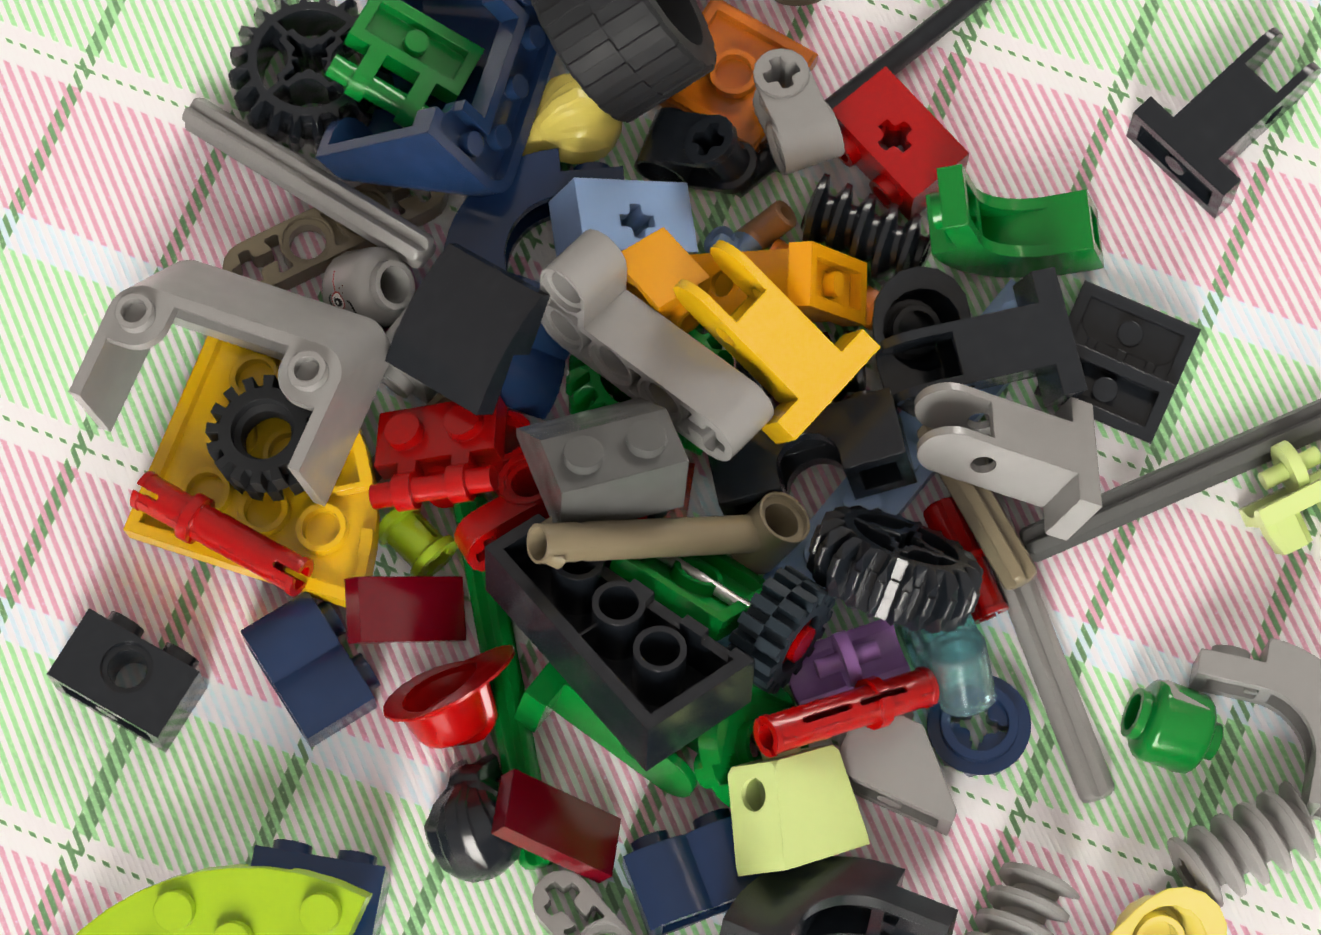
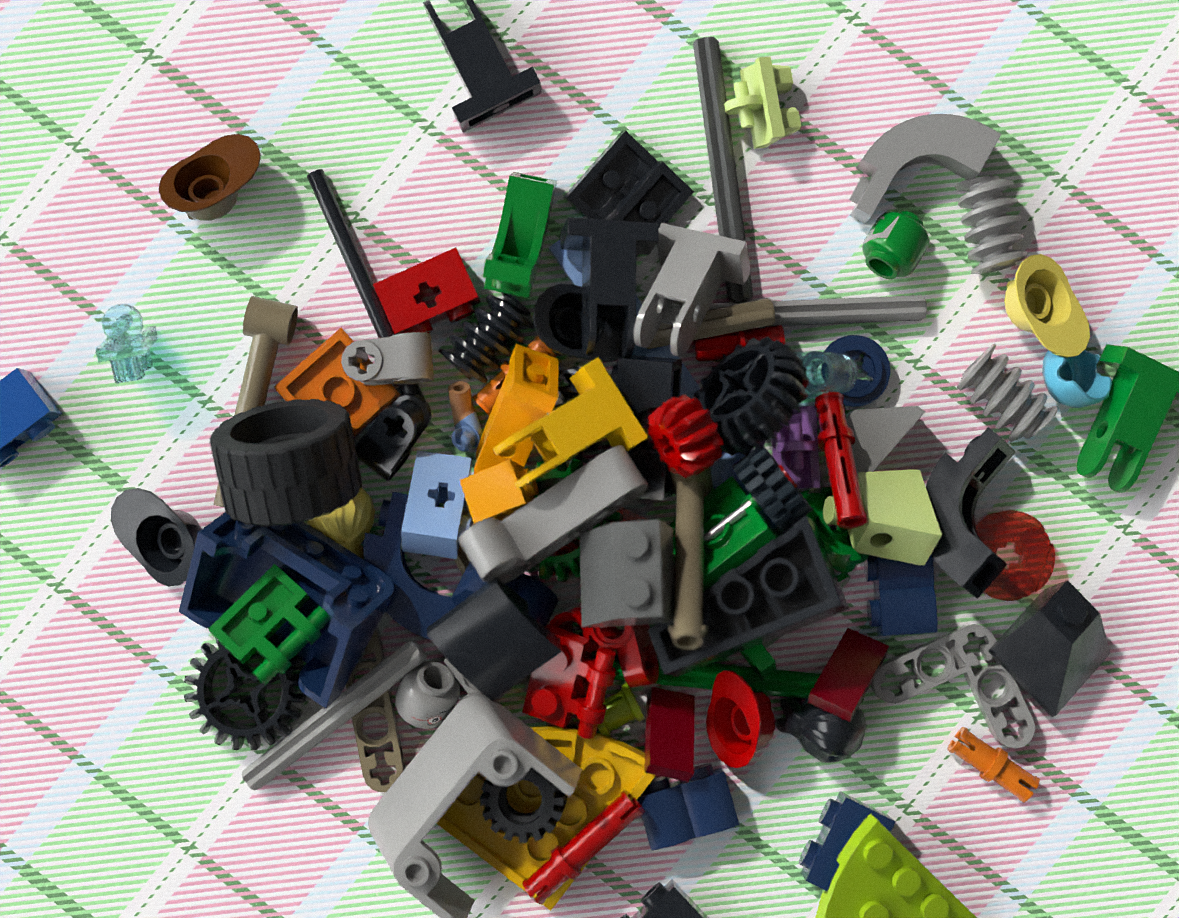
camera: 75 degrees left, 15 degrees up
(812, 488) = (685, 436): none -> red gear

